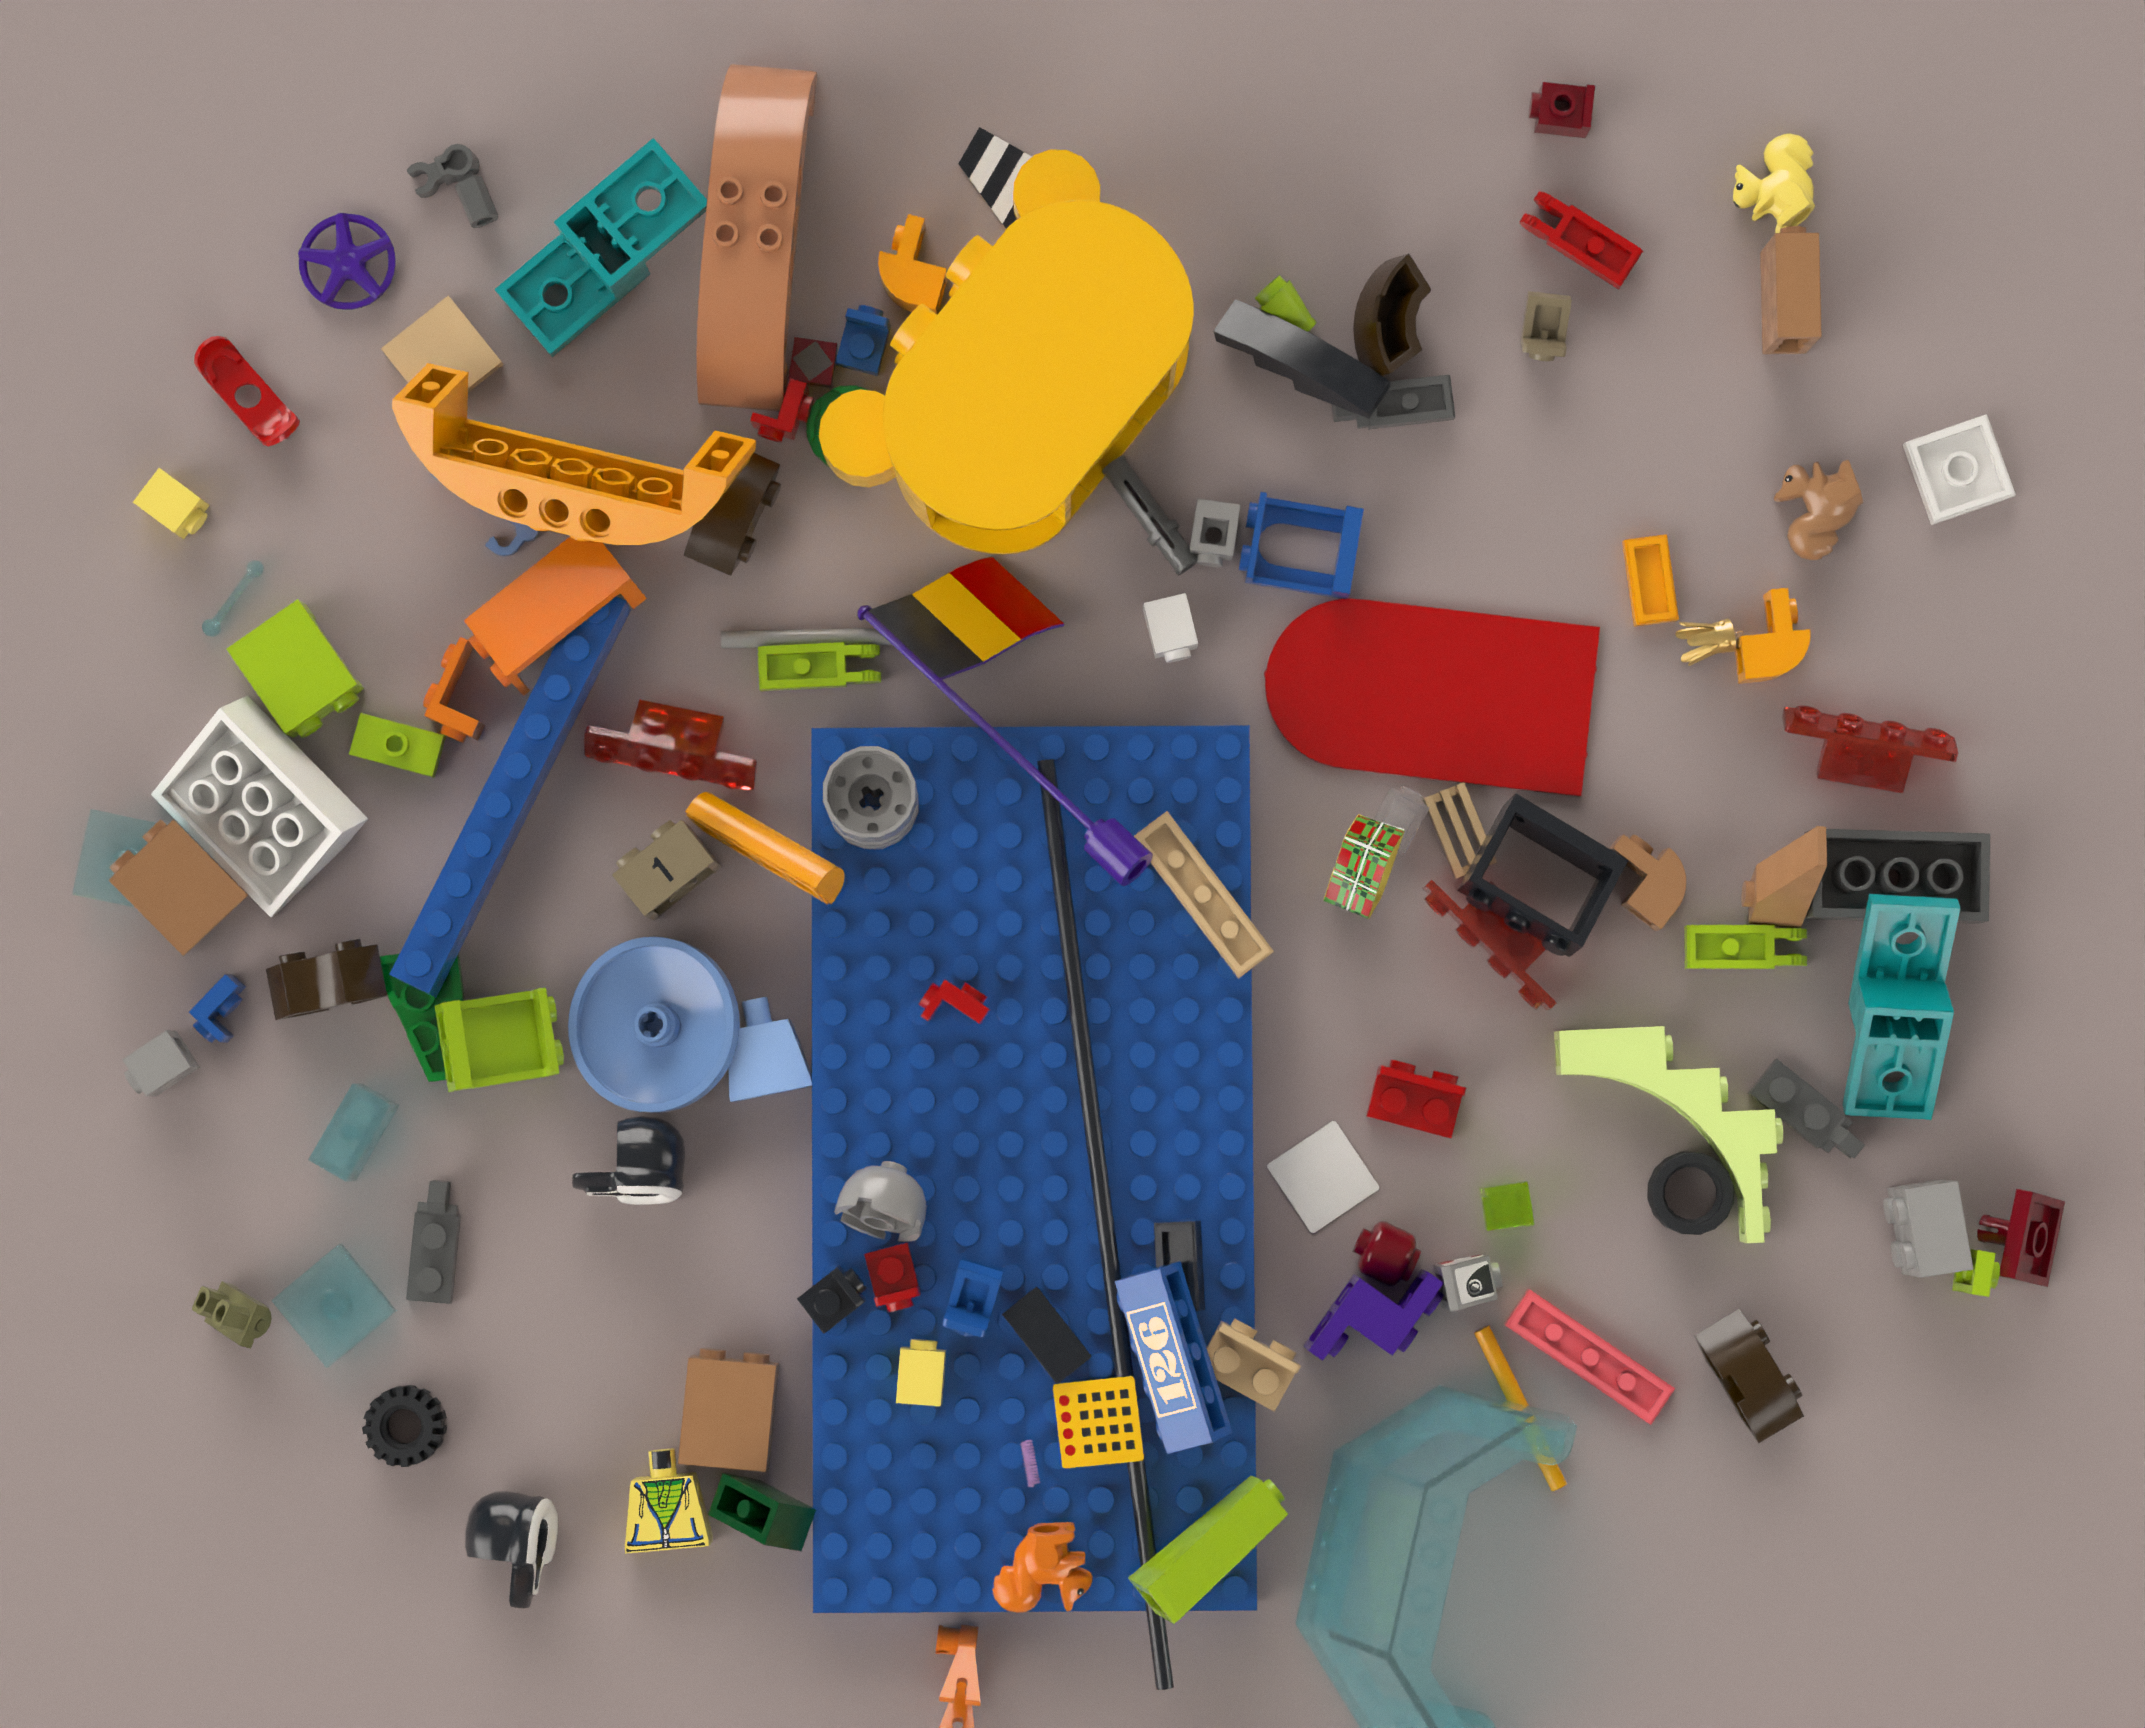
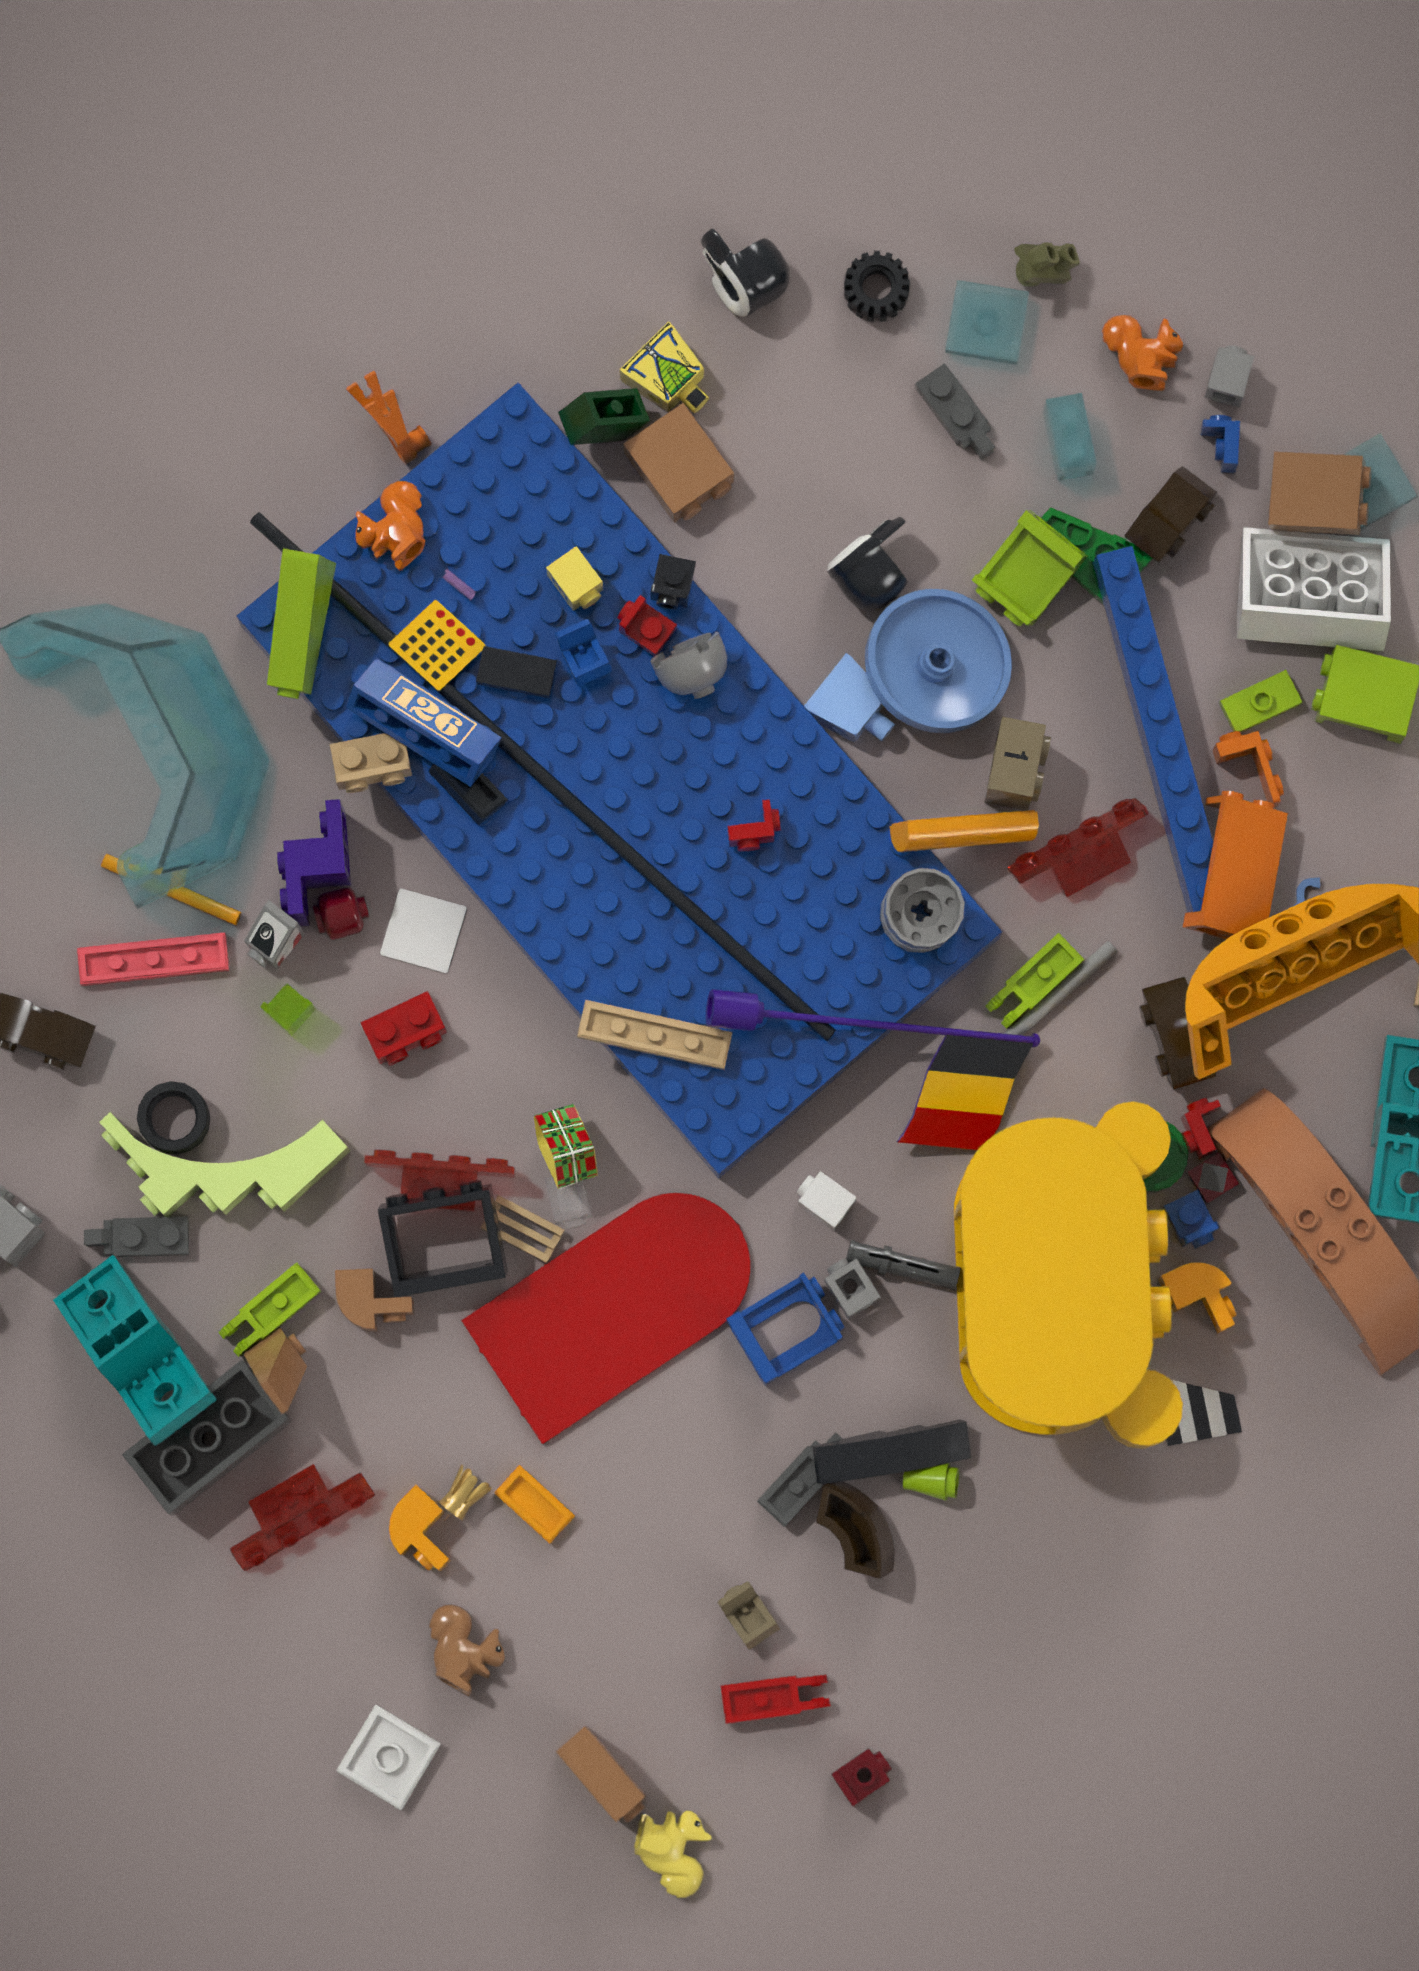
camera: 140 degrees right, 5 degrees down
(223, 1151) = (1139, 356): none -> orange animal

